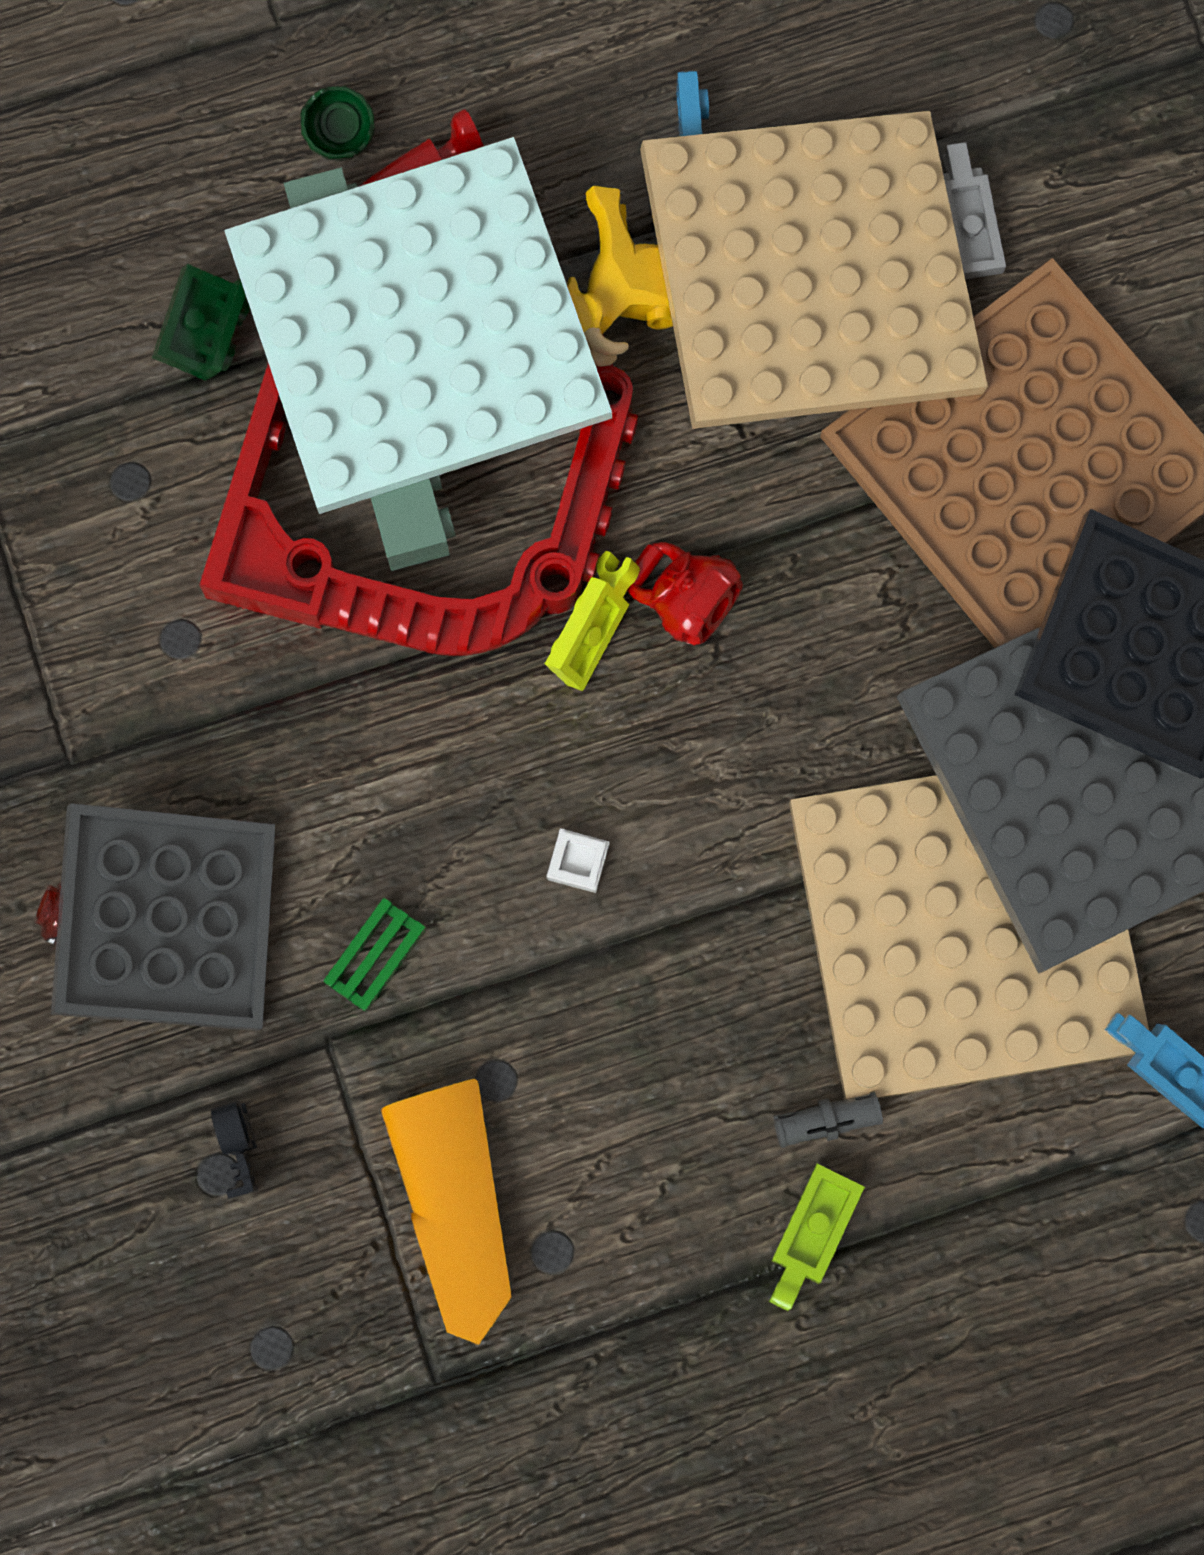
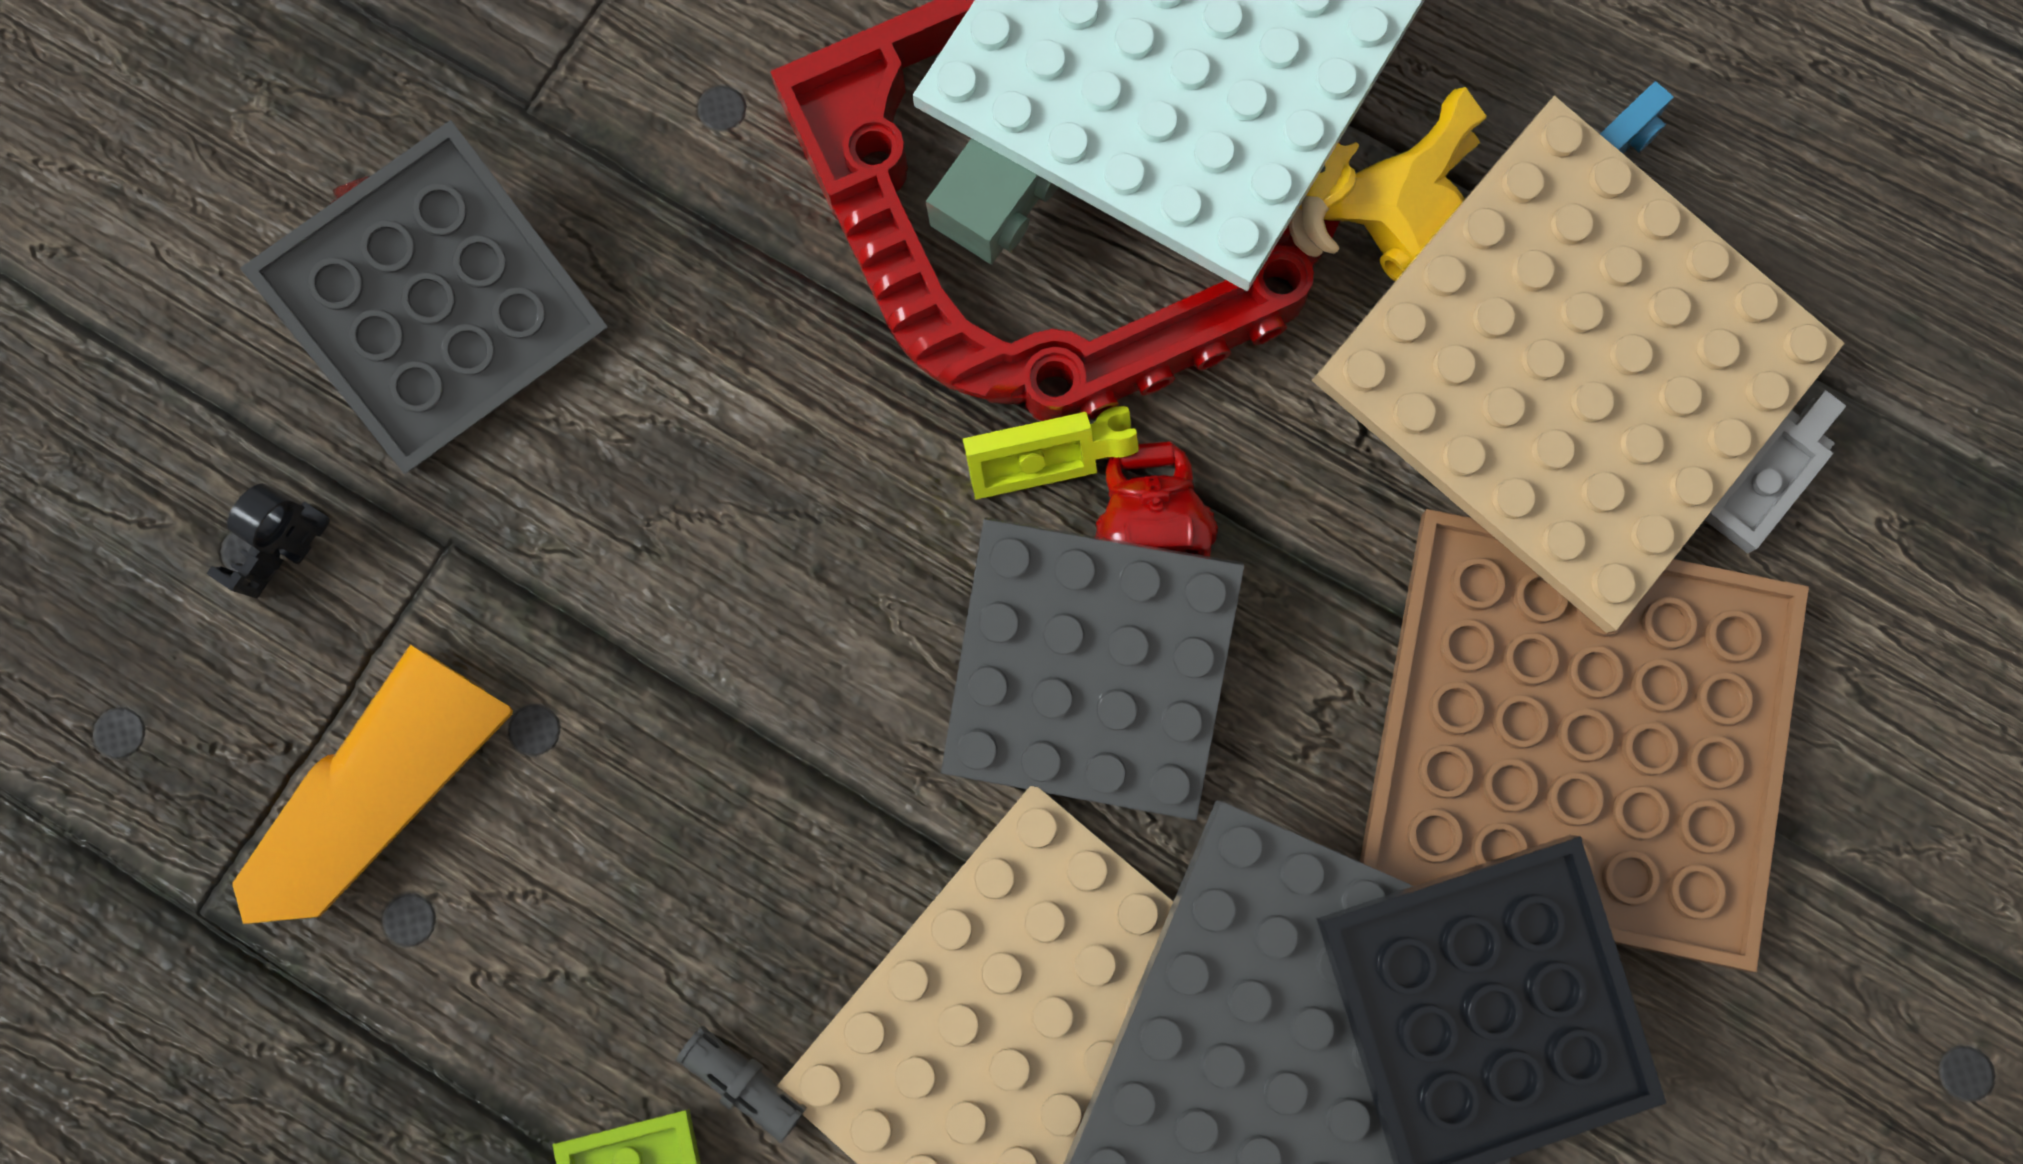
camera: 55 degrees right, 0 degrees up
(400, 919) = (508, 521): green tile -> none
(578, 860) = (806, 630): white tile -> none
(752, 705) = (1091, 668): none -> dark grey plate

